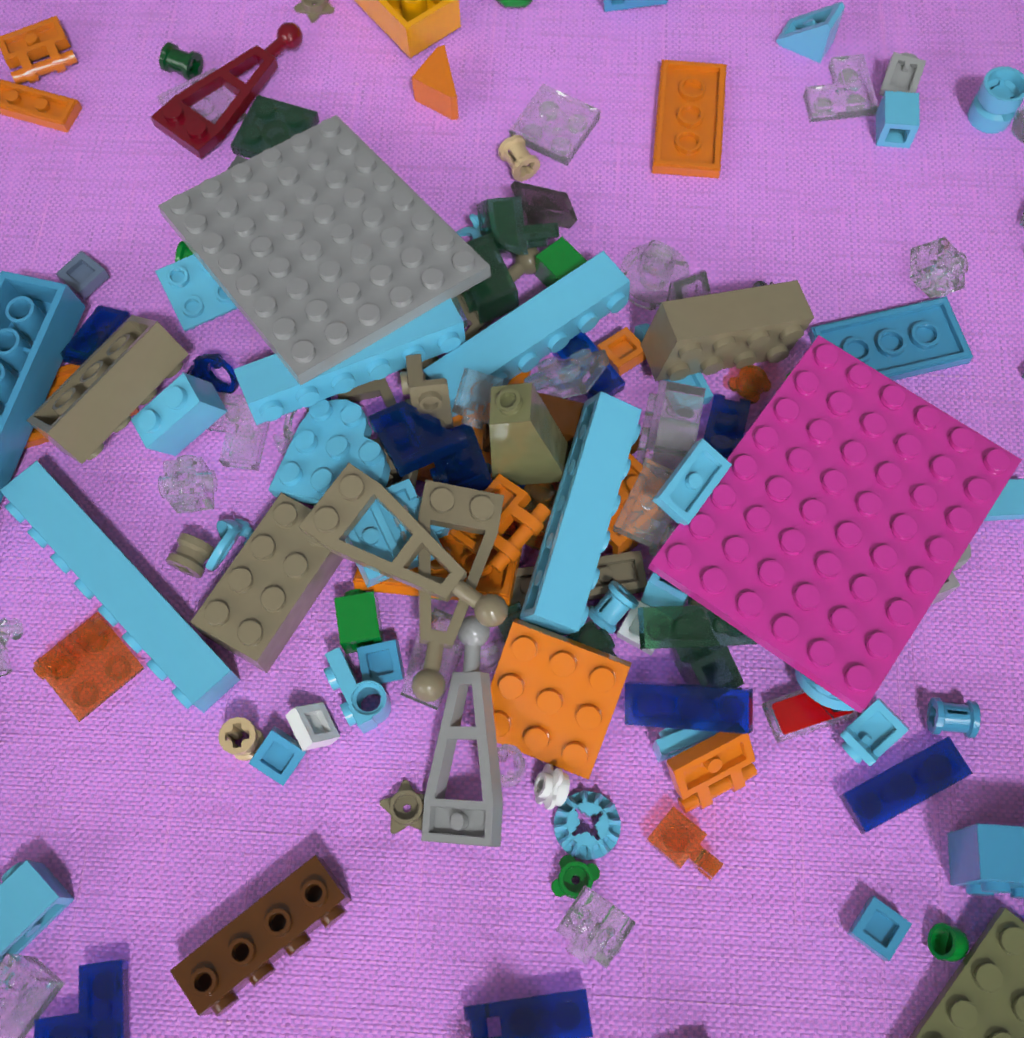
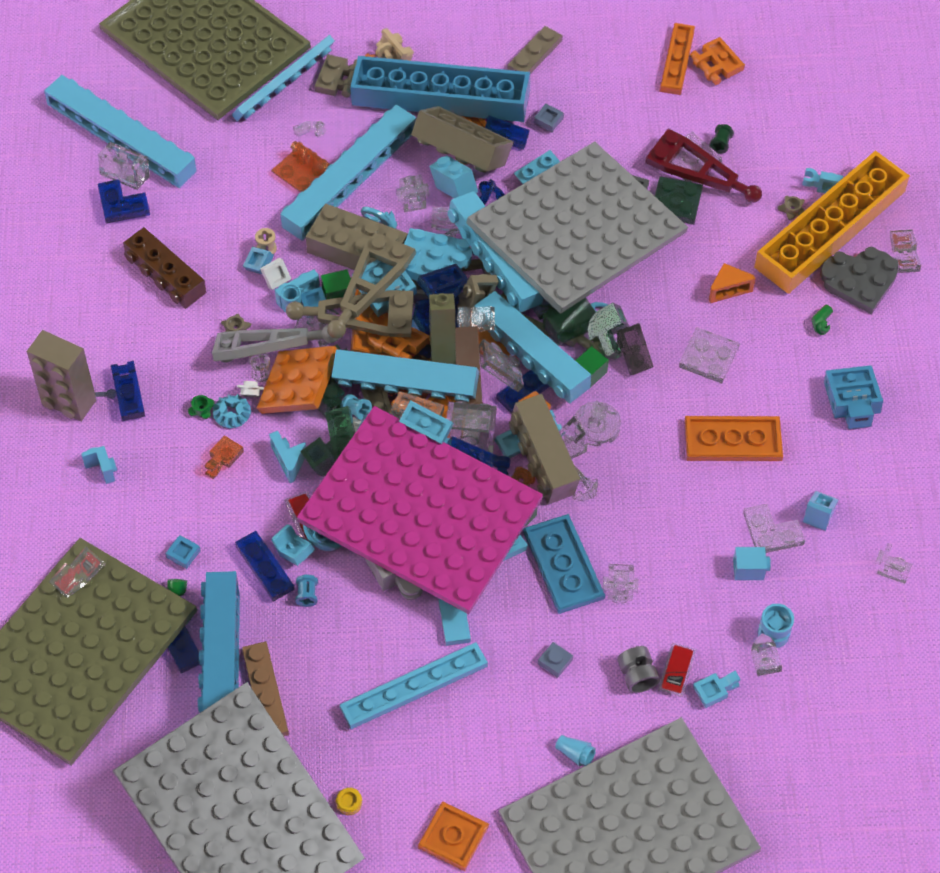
camera: 80 degrees right, 10 degrees down
(190, 555) = (369, 200): dark tan wheel -> none
(518, 158) = (676, 336): tan bush -> none
(594, 928) = (175, 411): clear brick -> none
(689, 707) = (295, 438): clear blue plate -> none
(711, 769) = (264, 455): orange plate -> none
(902, 73) = (789, 565): light grey bracket -> none

